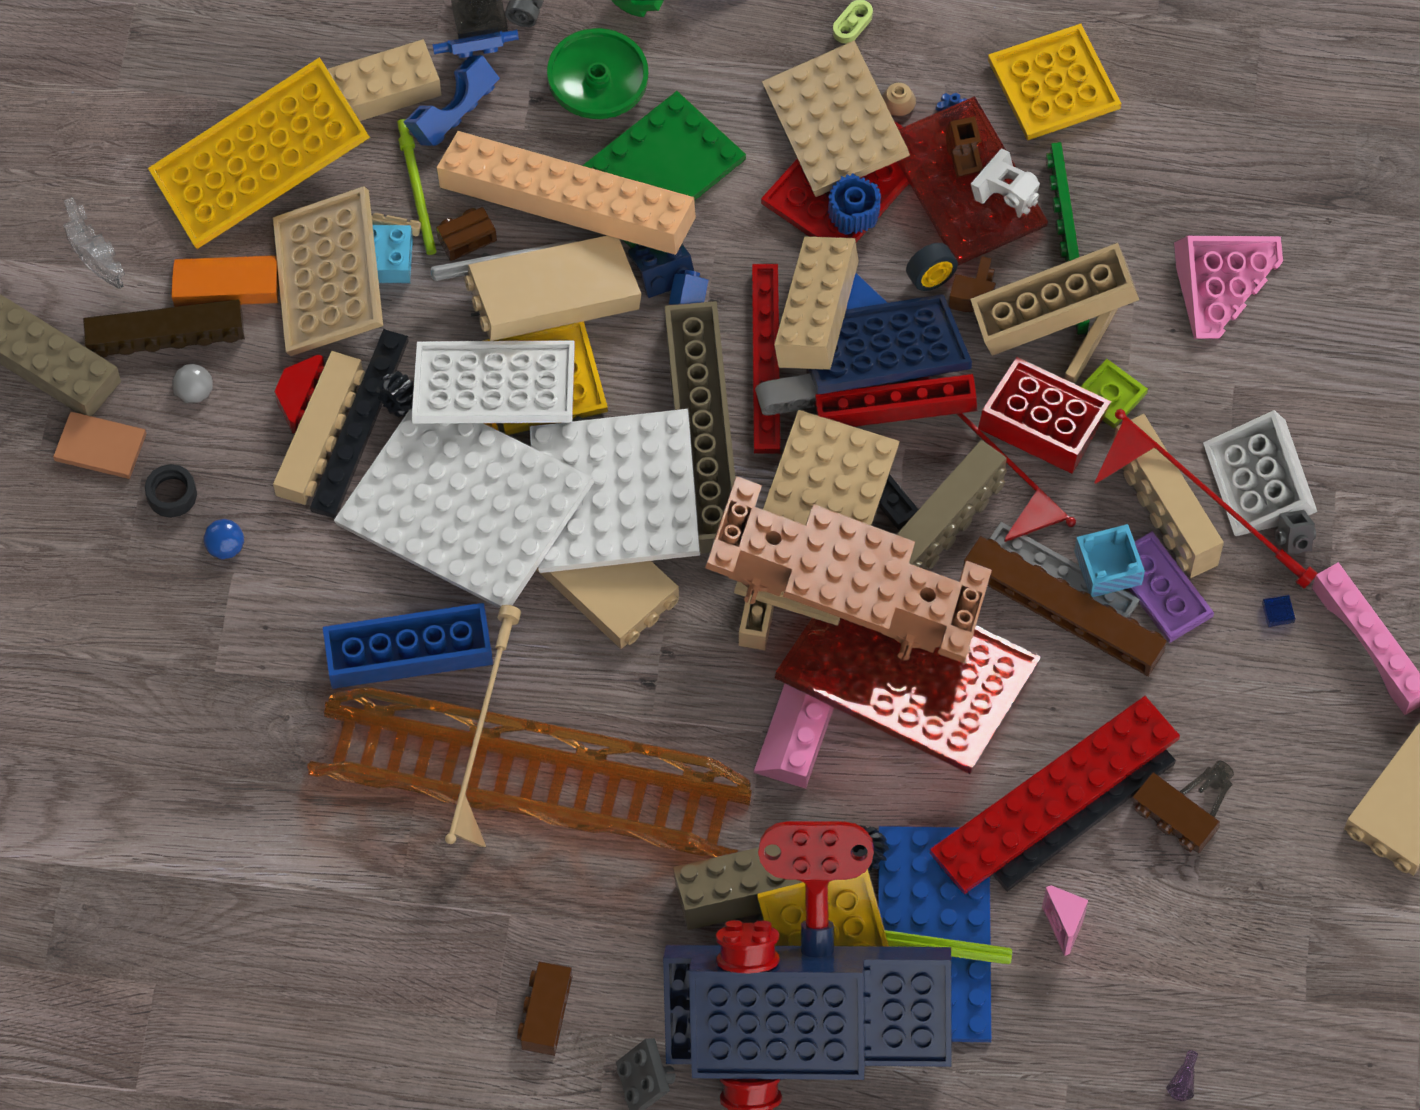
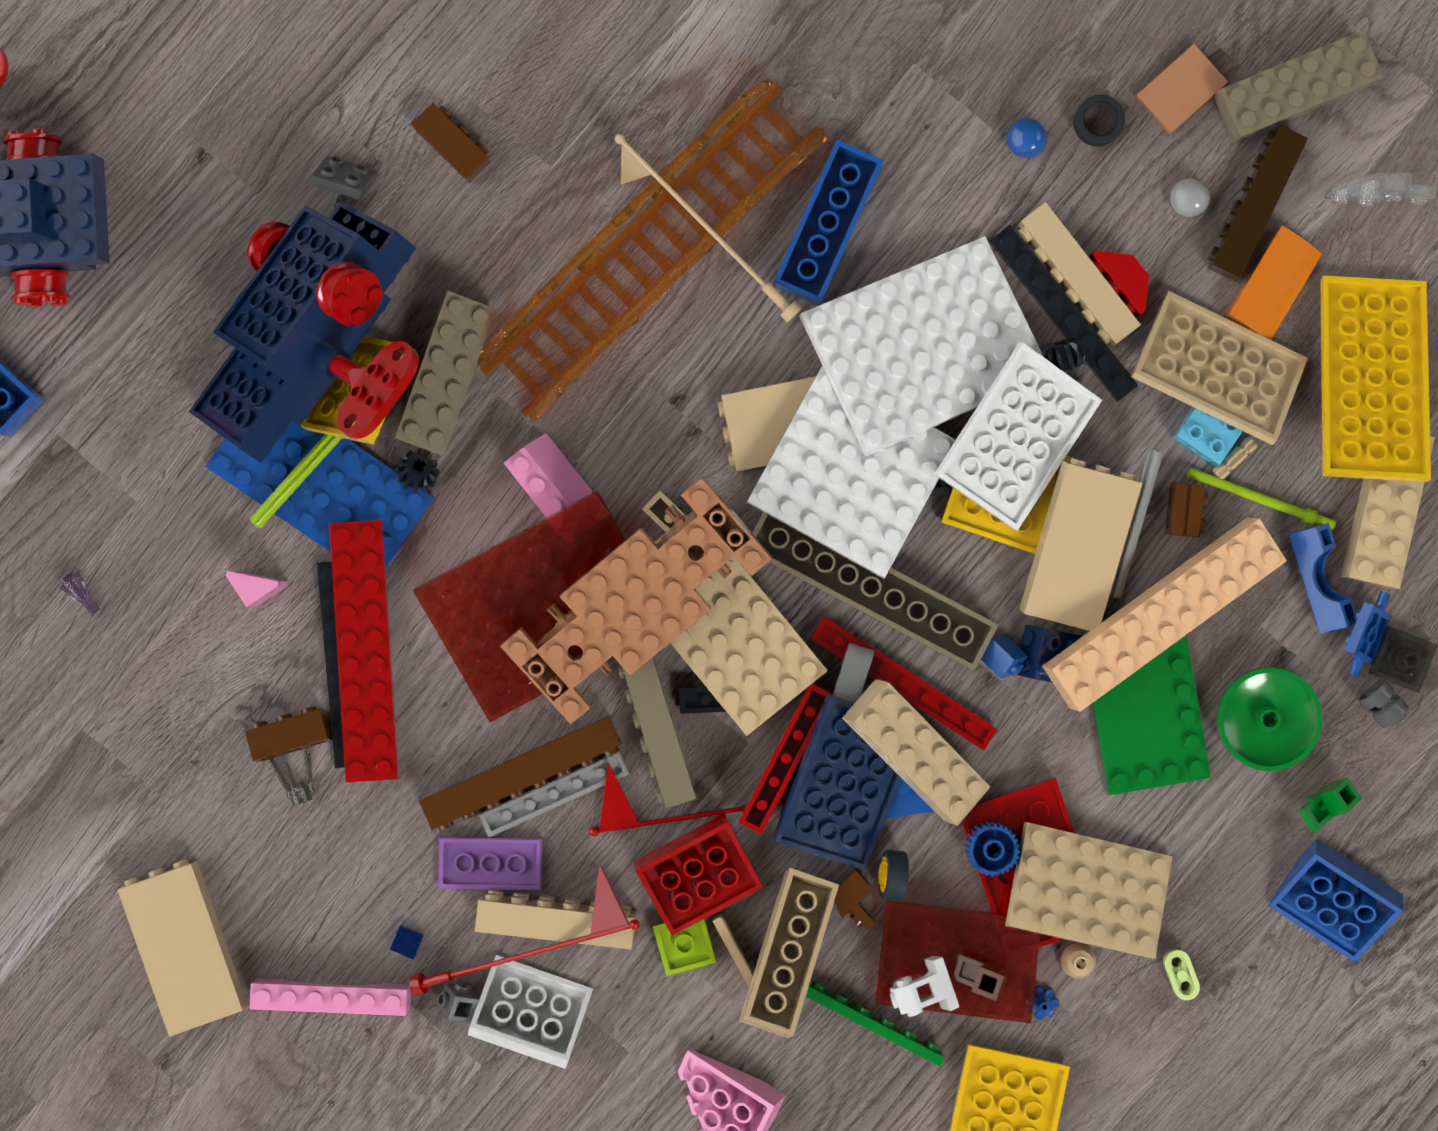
camera: 120 degrees right, 25 degrees up
(1109, 560) = (530, 833): medium azure container -> none

